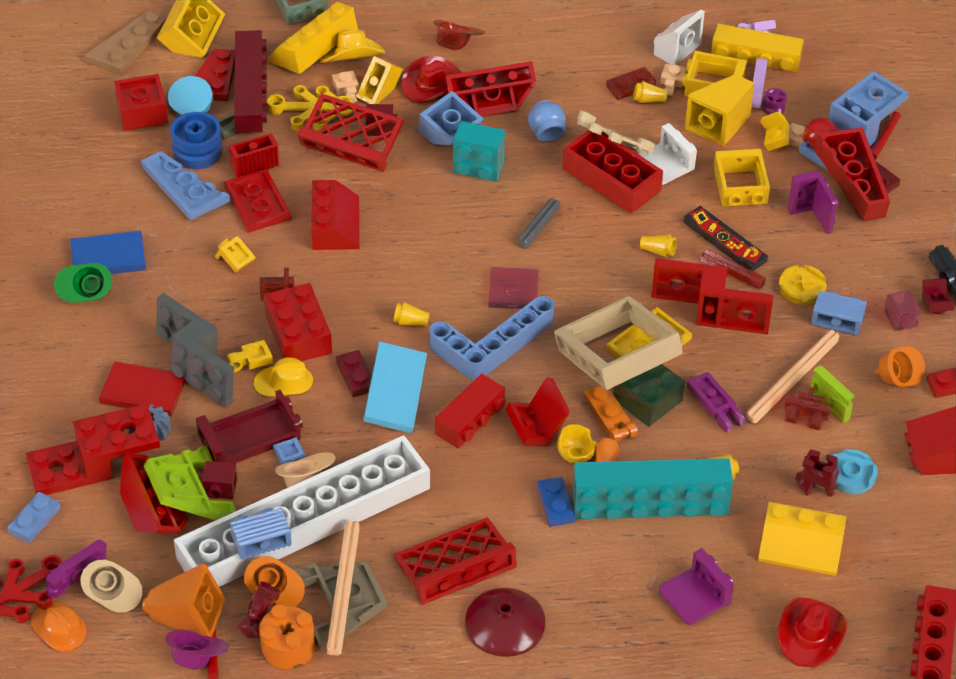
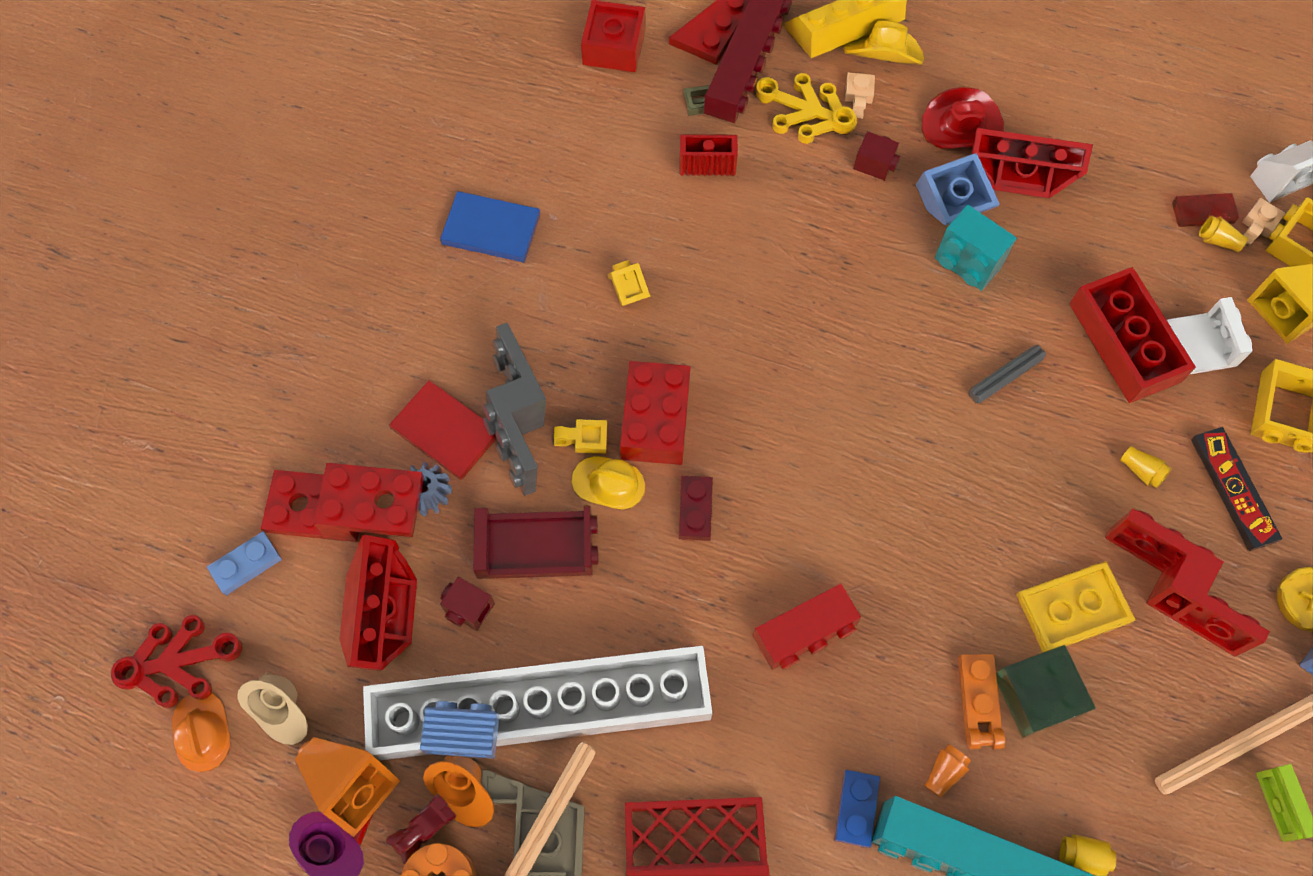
camera: 25 degrees right, 20 degrees up
(71, 569) = (245, 667): magenta hinge -> none
(83, 282) = (437, 261): green piece -> none
(180, 486) = (409, 602): lime wing -> none
(183, 187) = (614, 170): medium blue wing -> none
(190, 95) = (673, 47): medium azure tile -> none
(196, 140) = (652, 109): blue wheel -> none
(257, 200) = (689, 215): red tile -> none
(272, 284) = (653, 350): clear red bracket -> none
(288, 451) = (568, 593): medium blue tile -> none
(305, 468) = (568, 636): light nougat piece -> none
(334, 216) = (765, 273): red slope -> none
(339, 146) = (816, 180): red fence -> none
(379, 81) = (898, 100): yellow slope -> none
(395, 387) = (731, 552): medium azure tile -> none
(409, 315) = (794, 451): yellow cone -> none
(454, 35) = (1015, 67): clear red piece -> none
(495, 347) = (881, 534): medium blue beam -> none
(512, 287) = (937, 458): clear pink tile -> none
(542, 417) = (887, 676): red bracket -> none
(547, 121) = (1078, 232): medium blue piece -> none
(573, 336) = (1030, 560): tan window -> none
(576, 443) = (916, 738): yellow hair -> none
(641, 145) = (1184, 315): tan plant -> none
(715, 401) = (1125, 740): magenta hinge -> none
(734, 269) = (1228, 540): clear red axle -> none
(808, 405) = (1253, 824): clear red hips -> none

